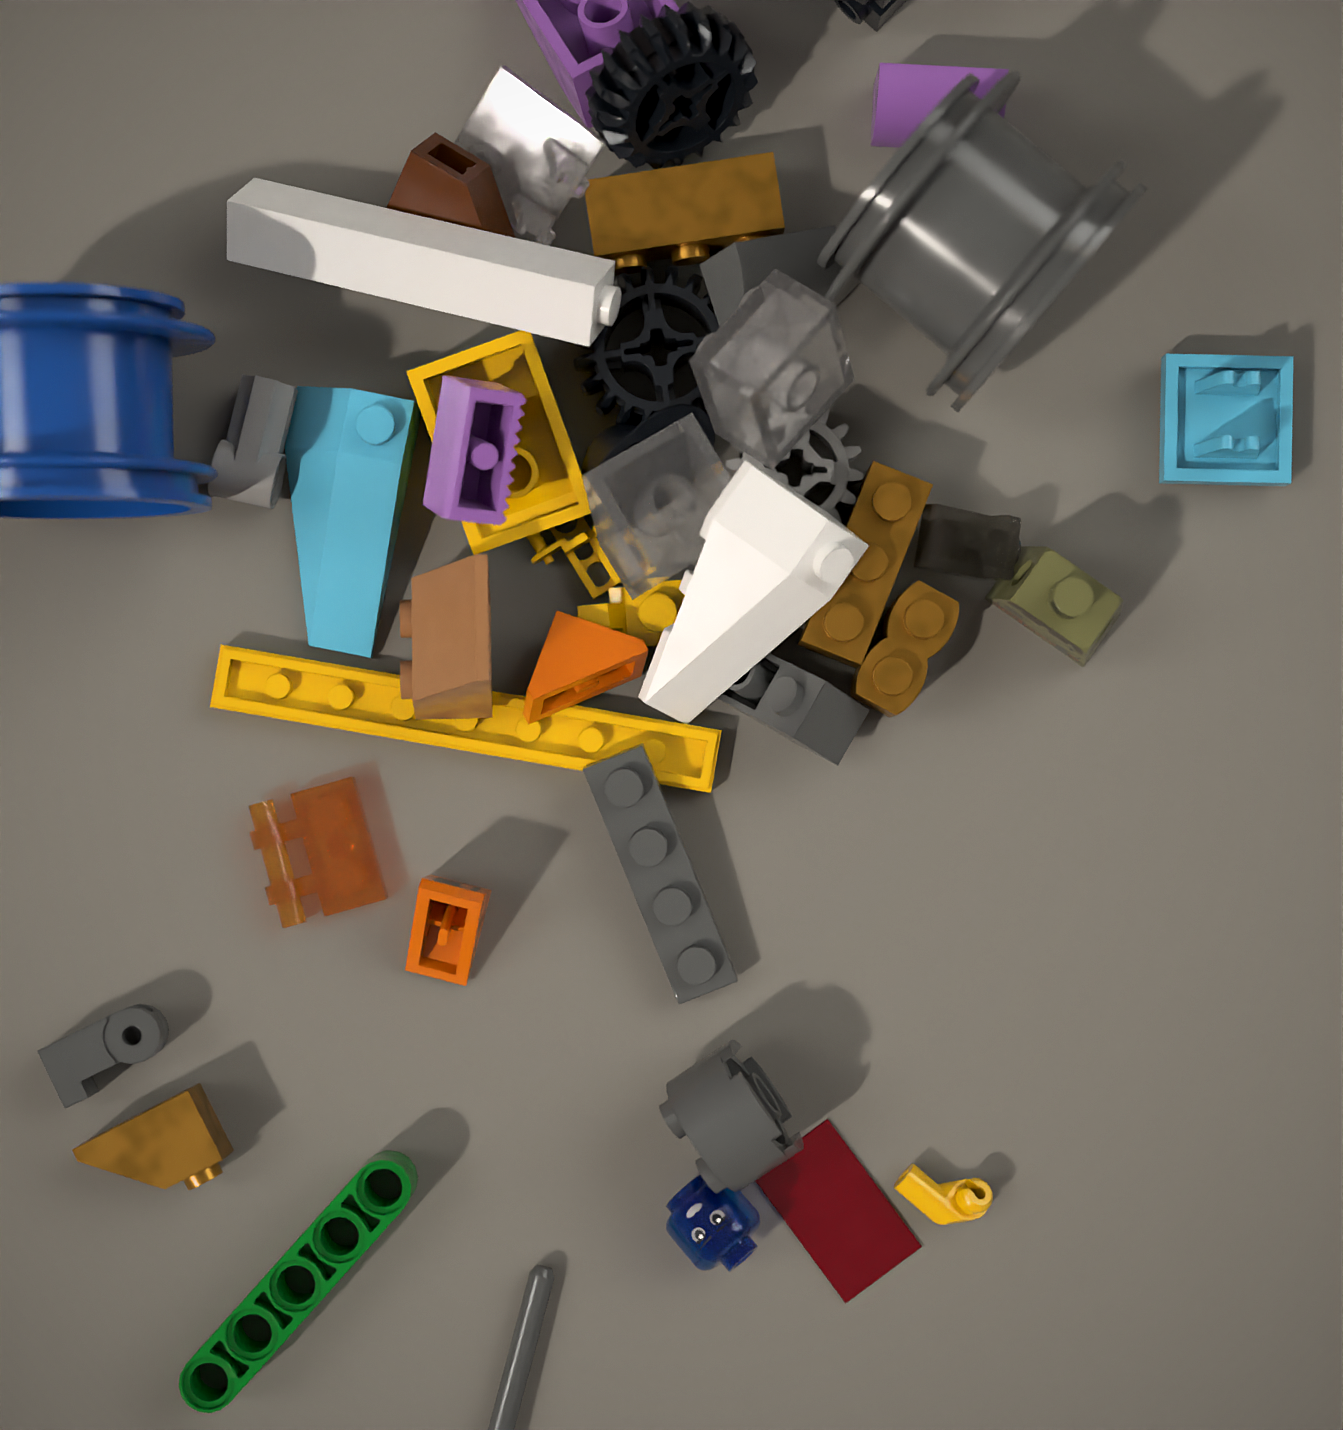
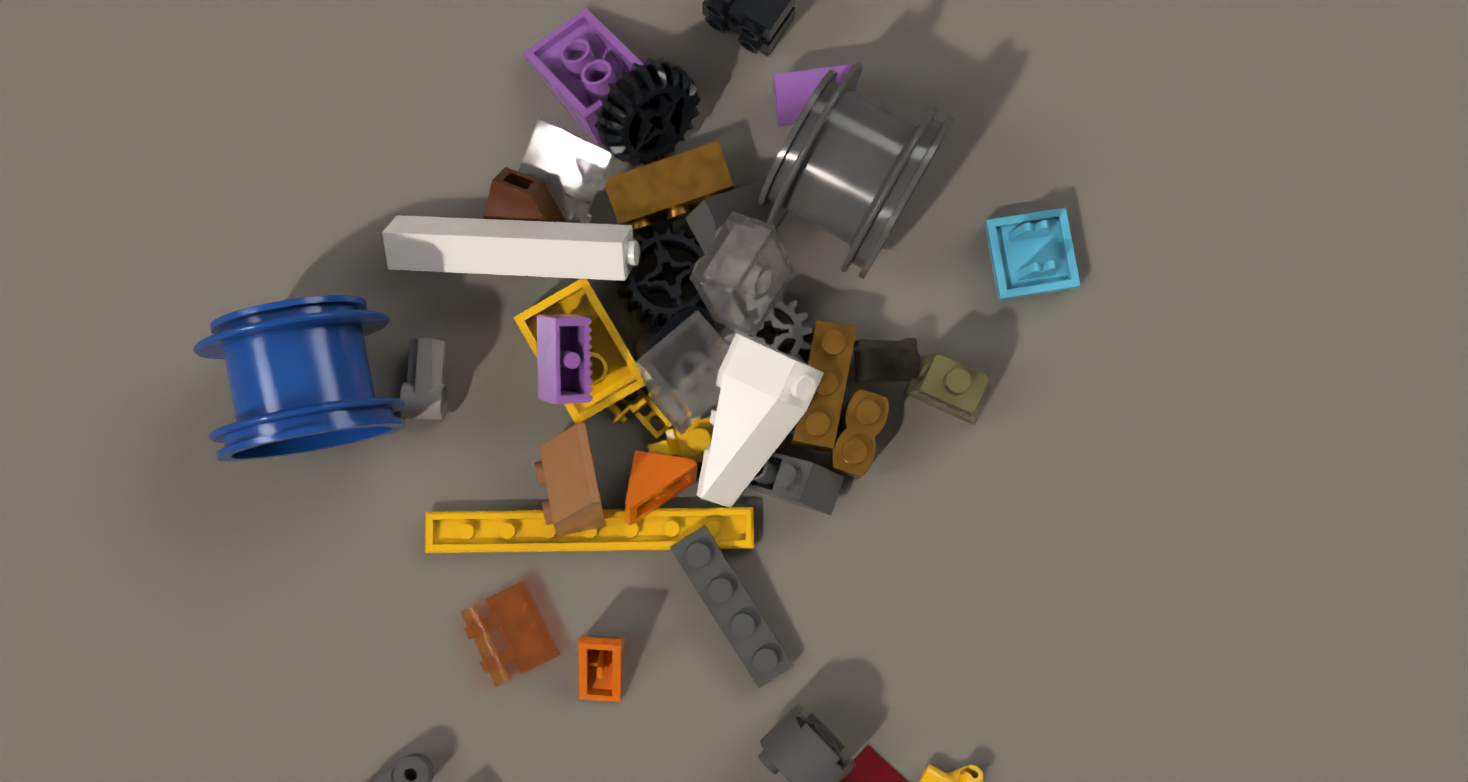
camera: 10 degrees left, 5 degrees down
(348, 488) = (489, 401): medium azure wedge -> none

